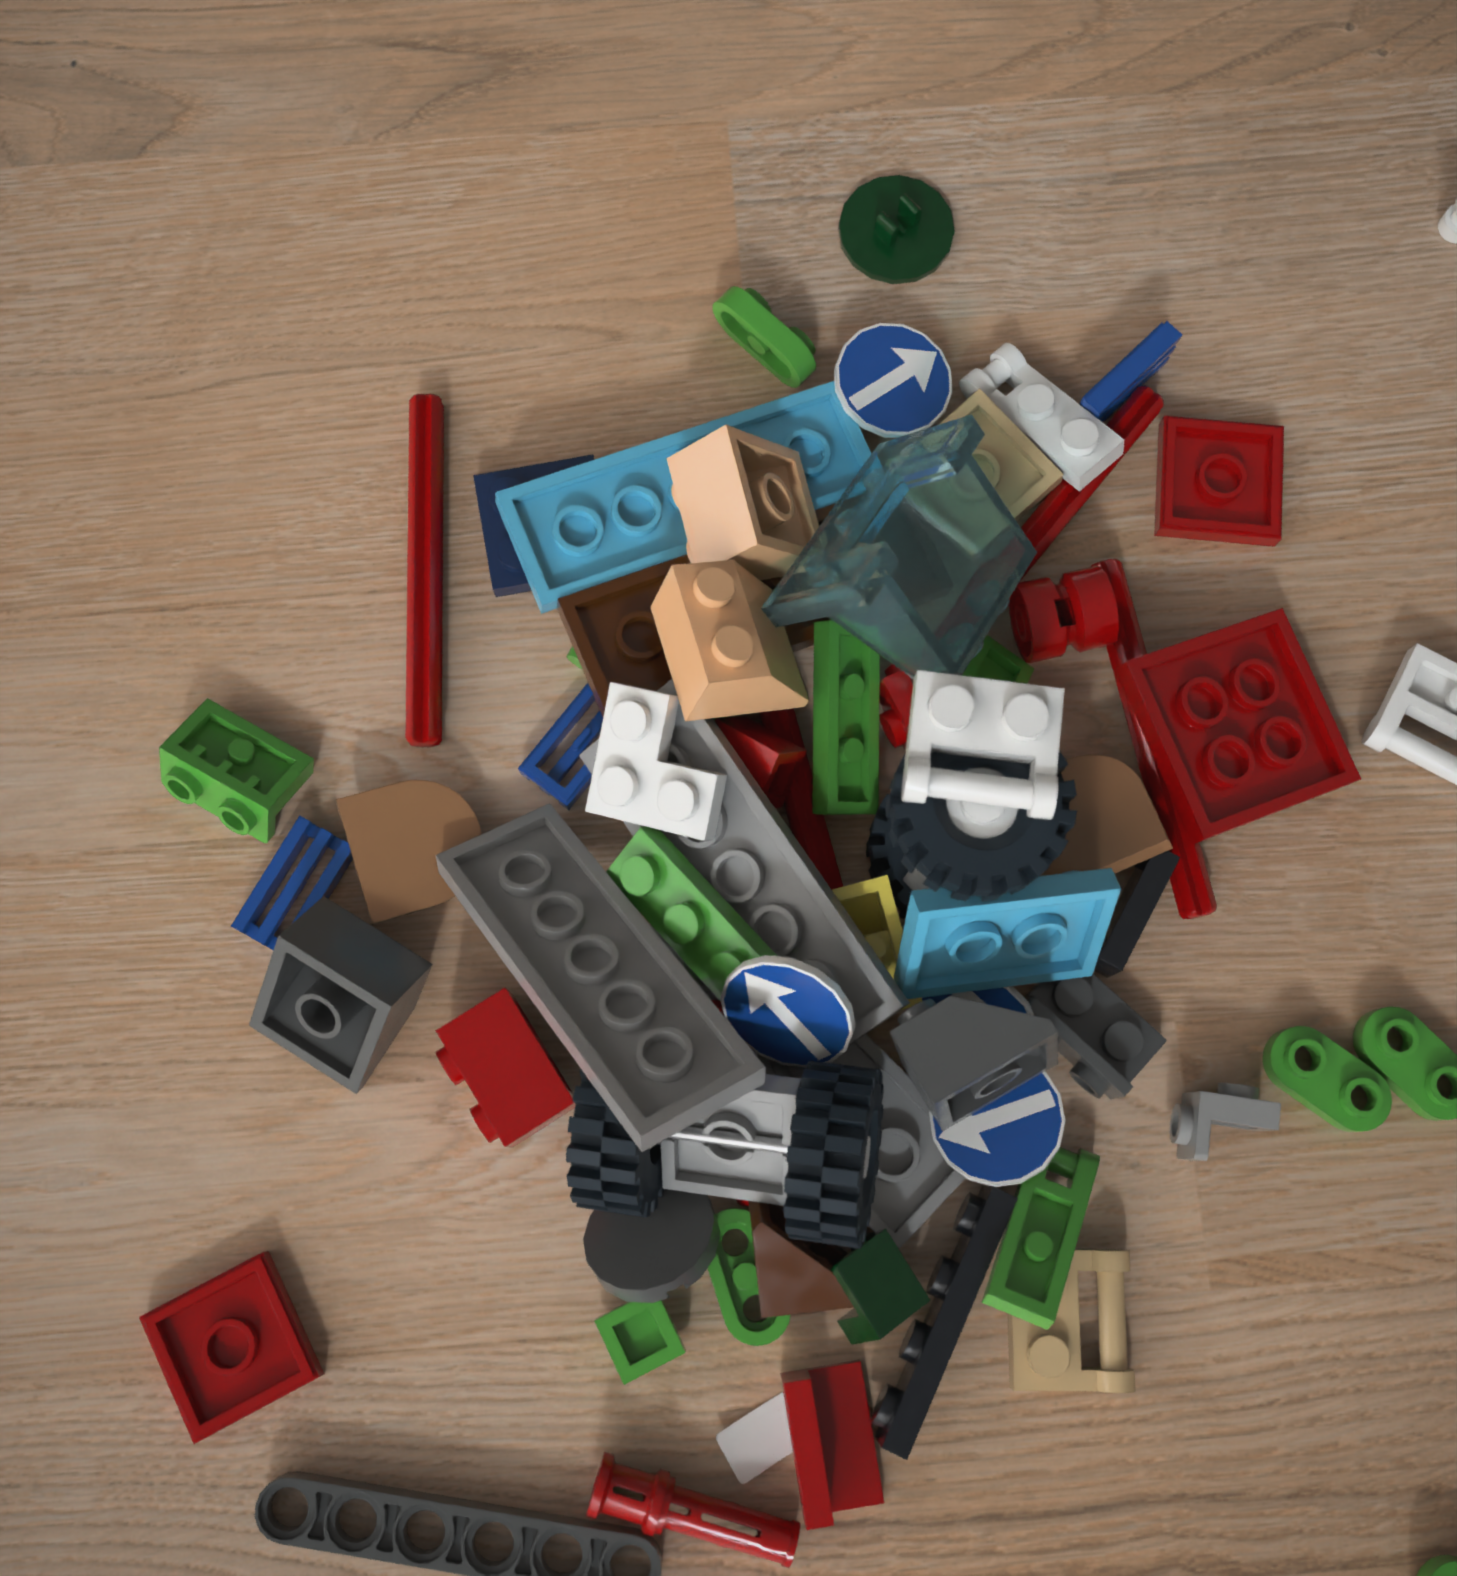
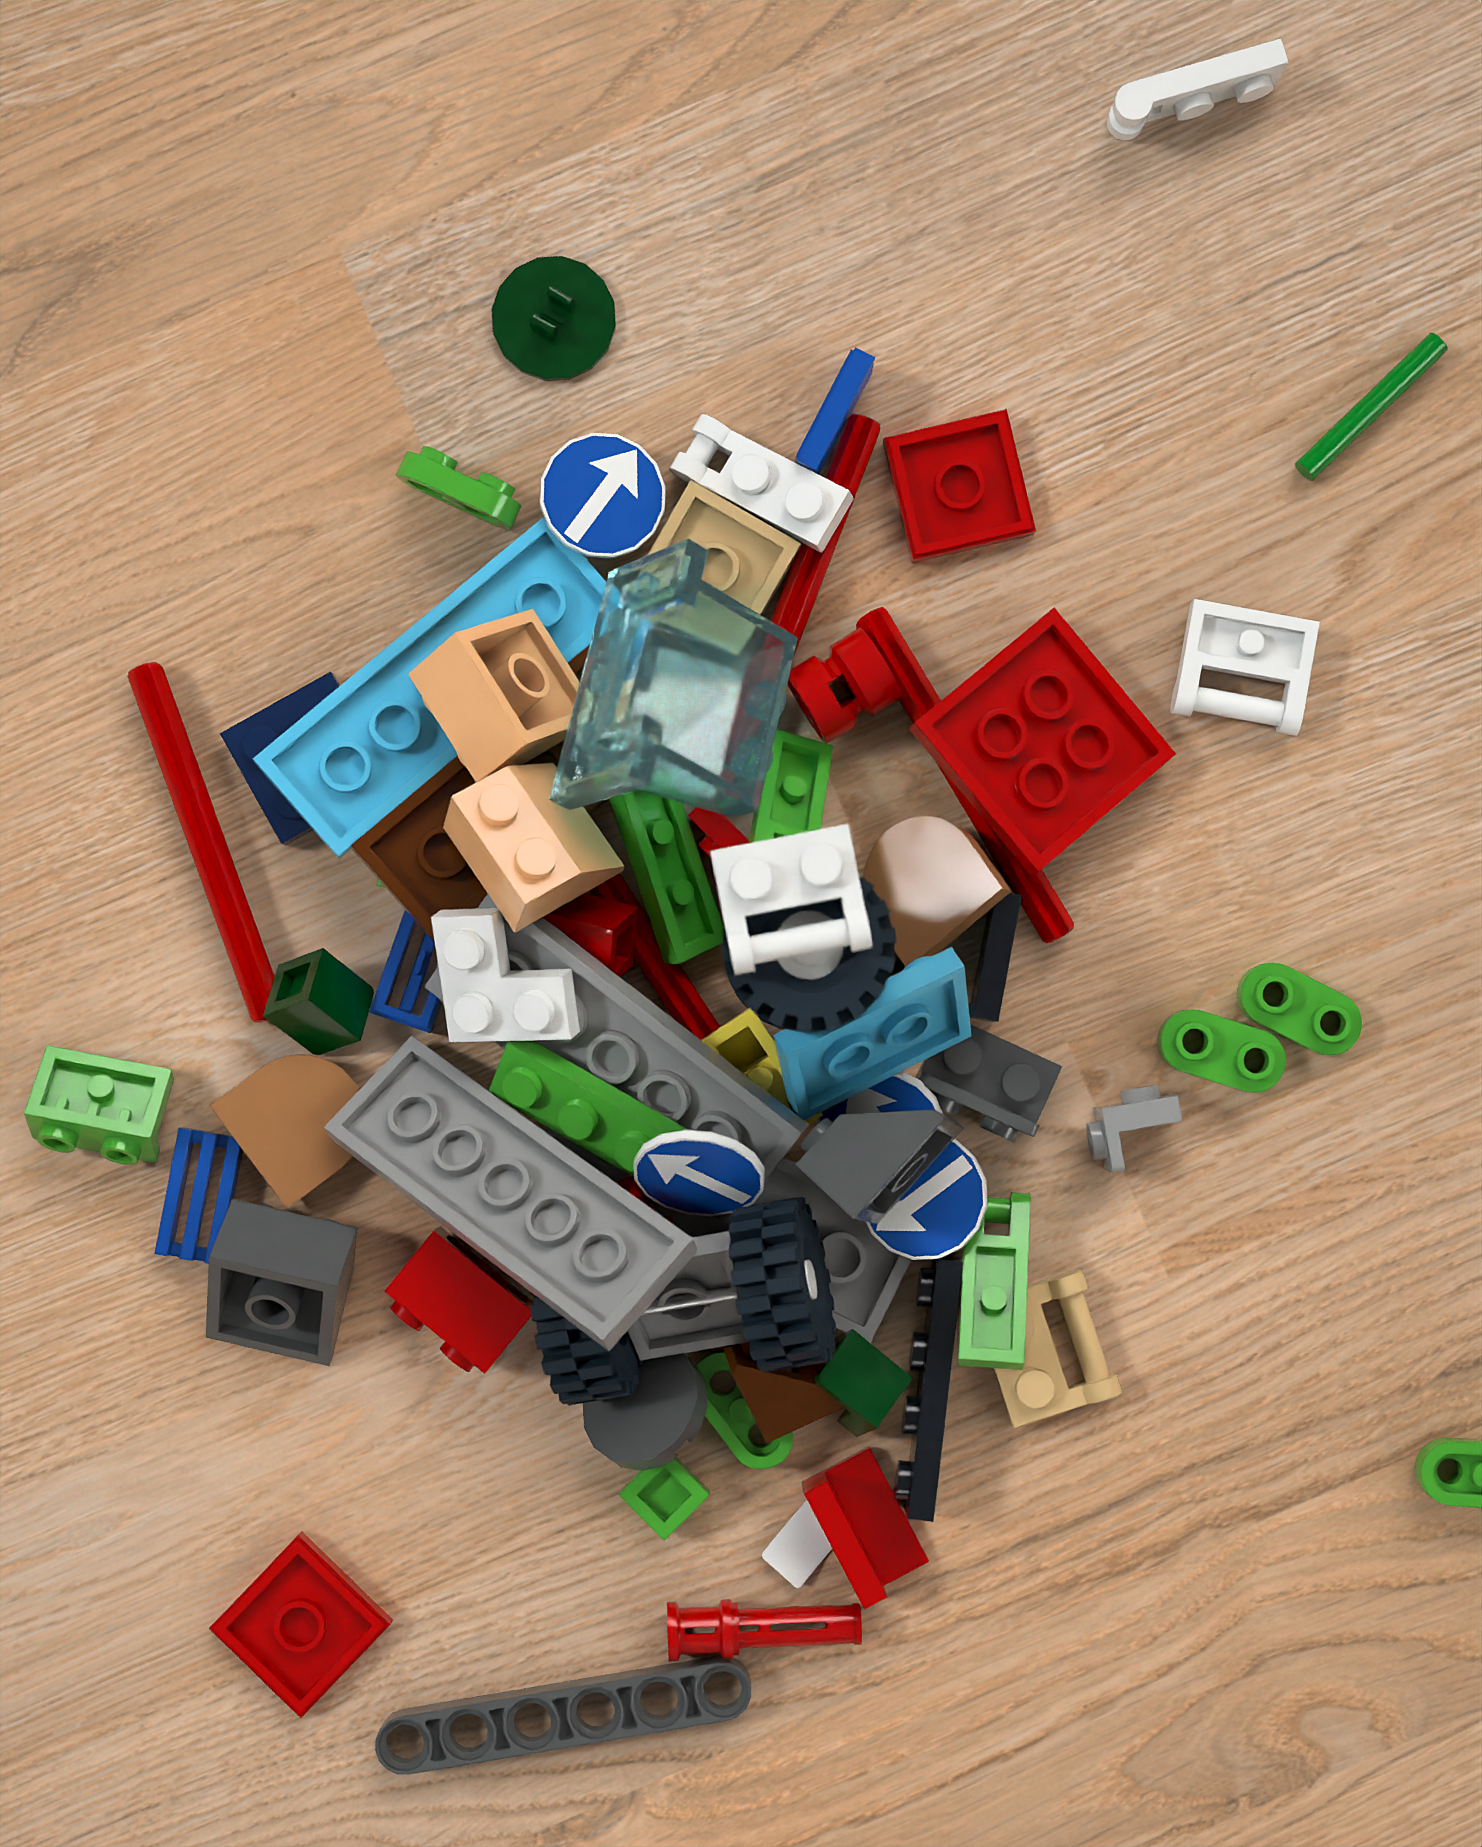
camera: 15 degrees left, 10 degrees up
(474, 743) = (319, 1002): none -> dark green panel

